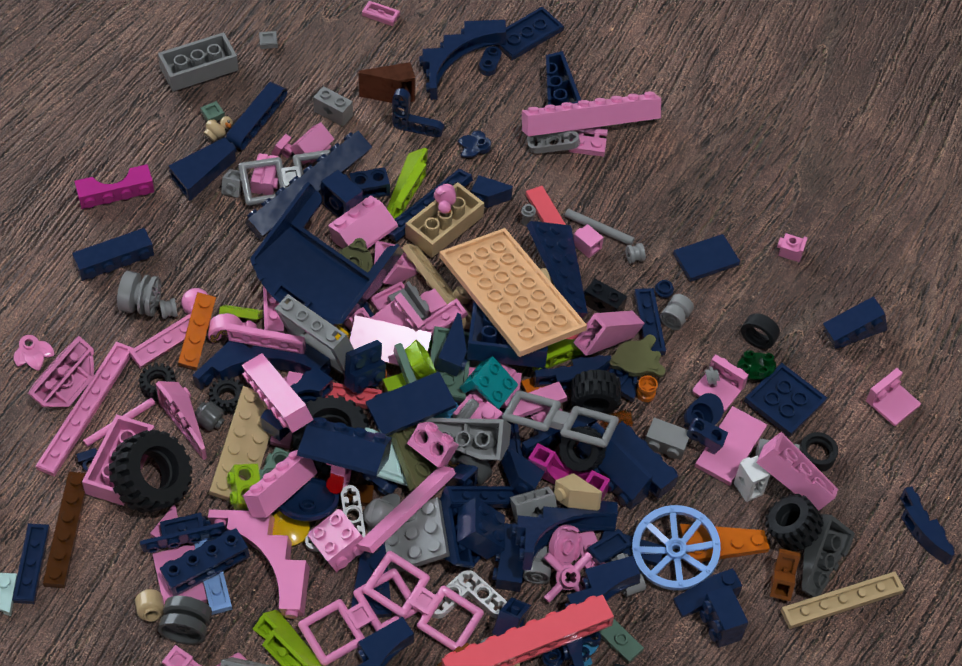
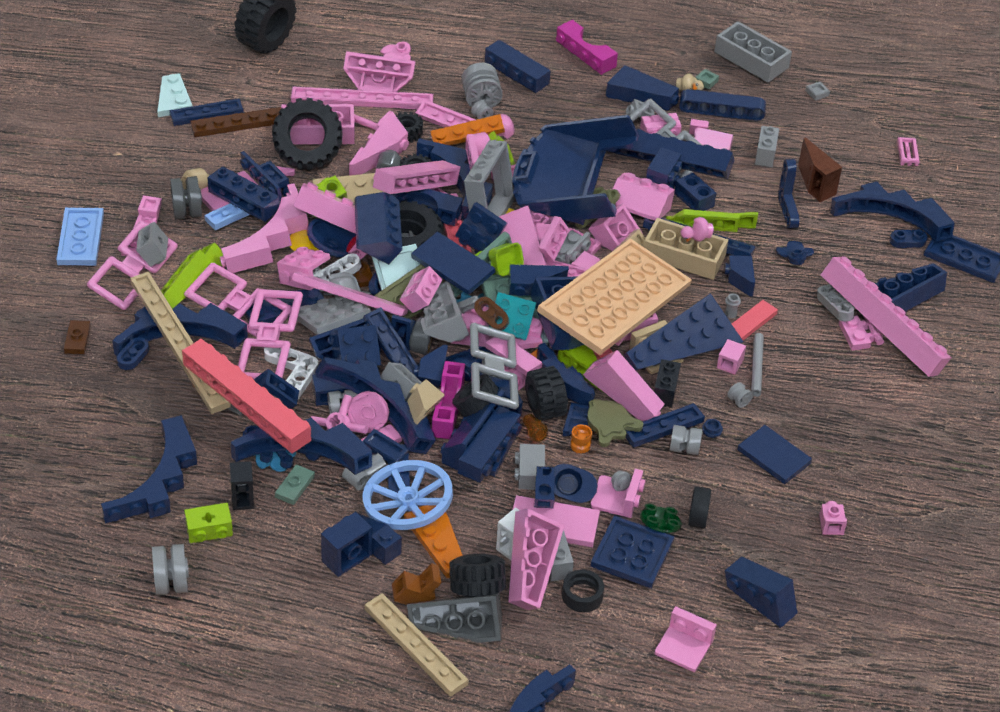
camera: 70 degrees right, 10 degrees down
(494, 397) = (492, 314): none -> reddish brown plate

